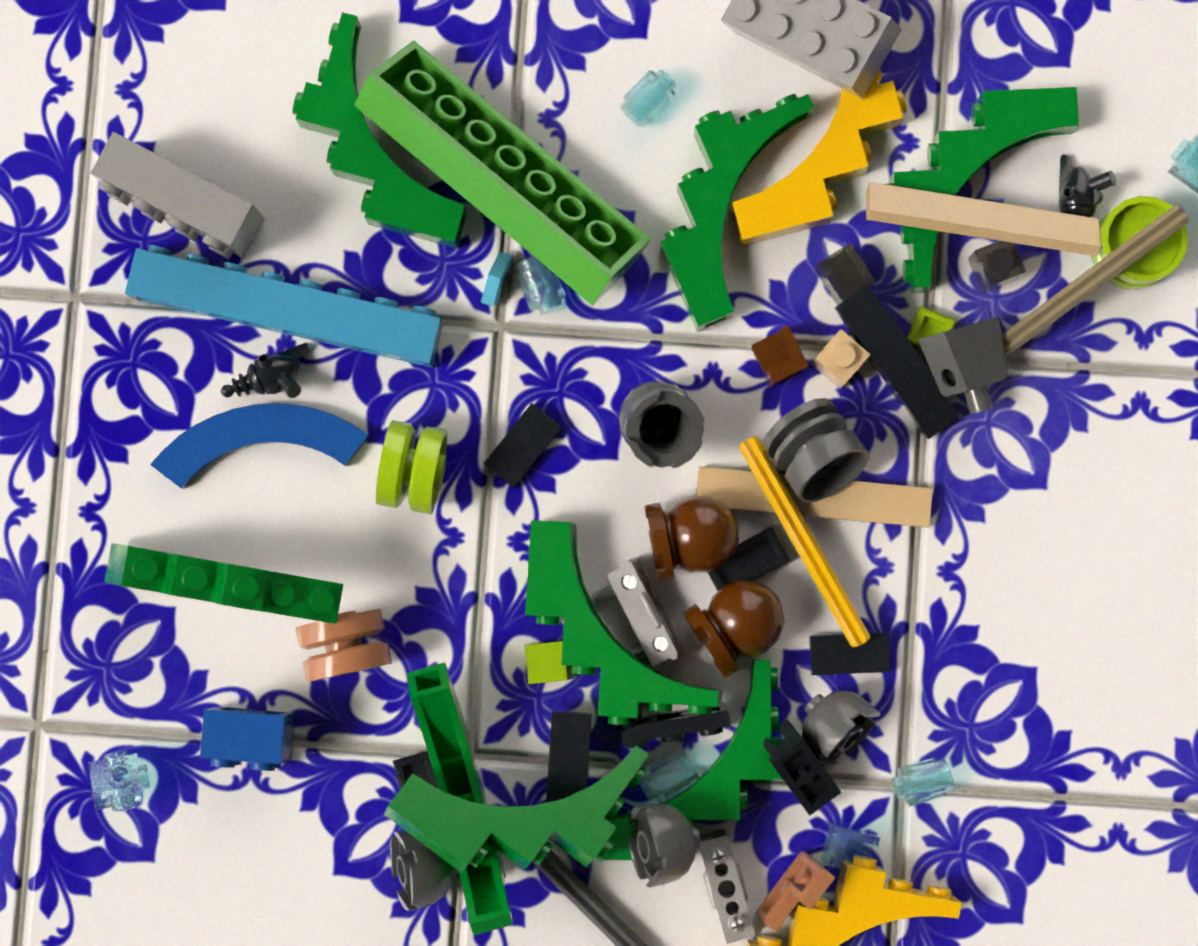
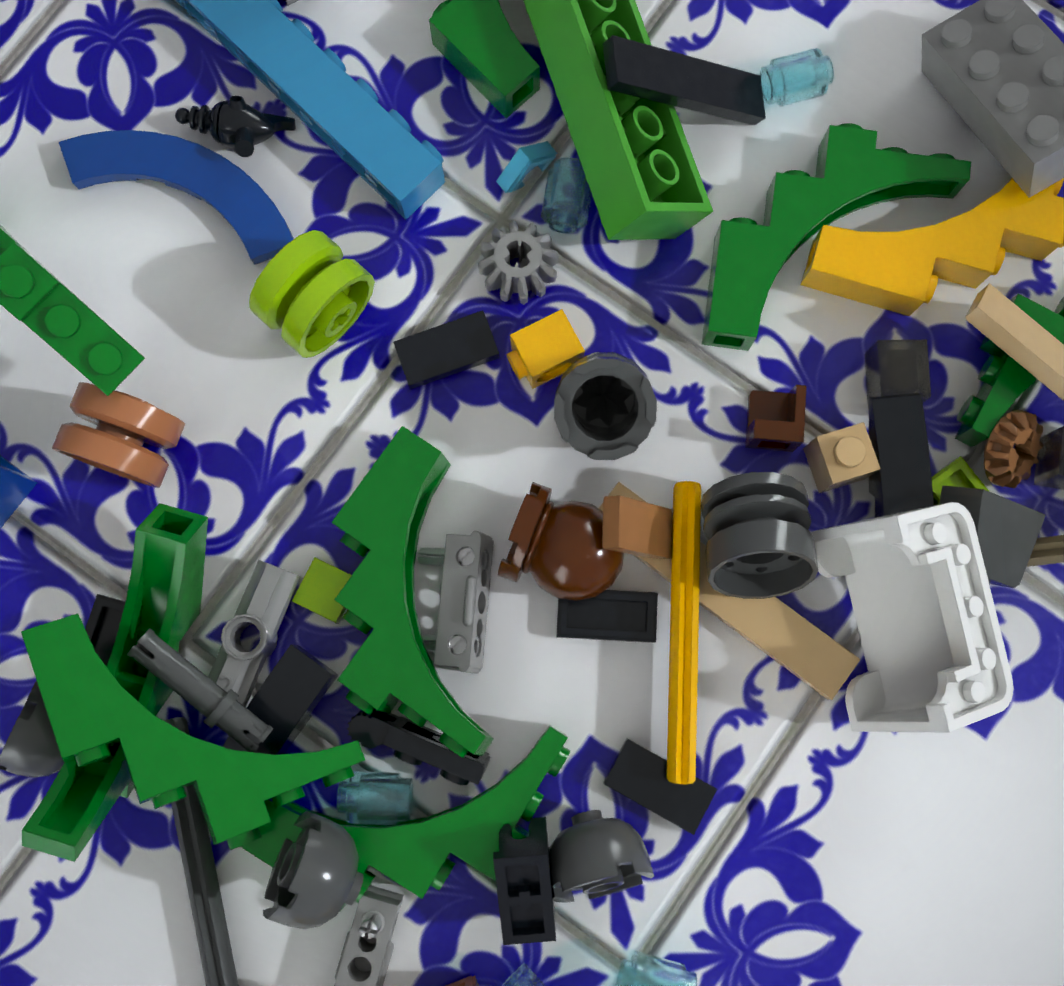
camera: 30 degrees right, 5 degrees down
(522, 751) = (264, 606): none -> light grey piece
(523, 359) = (518, 245): none -> light grey gear
(529, 779) = (200, 691): none -> dark grey pin
(576, 157) = (682, 81): none -> black tile
(593, 405) = (544, 349): none -> yellow brick
(733, 494) = (637, 527): none -> medium nougat tile
(740, 622) = (558, 674): reddish brown tile -> none
(948, 296) = (1001, 461): none -> medium nougat gear
(953, 440) = (920, 620): none -> white windscreen

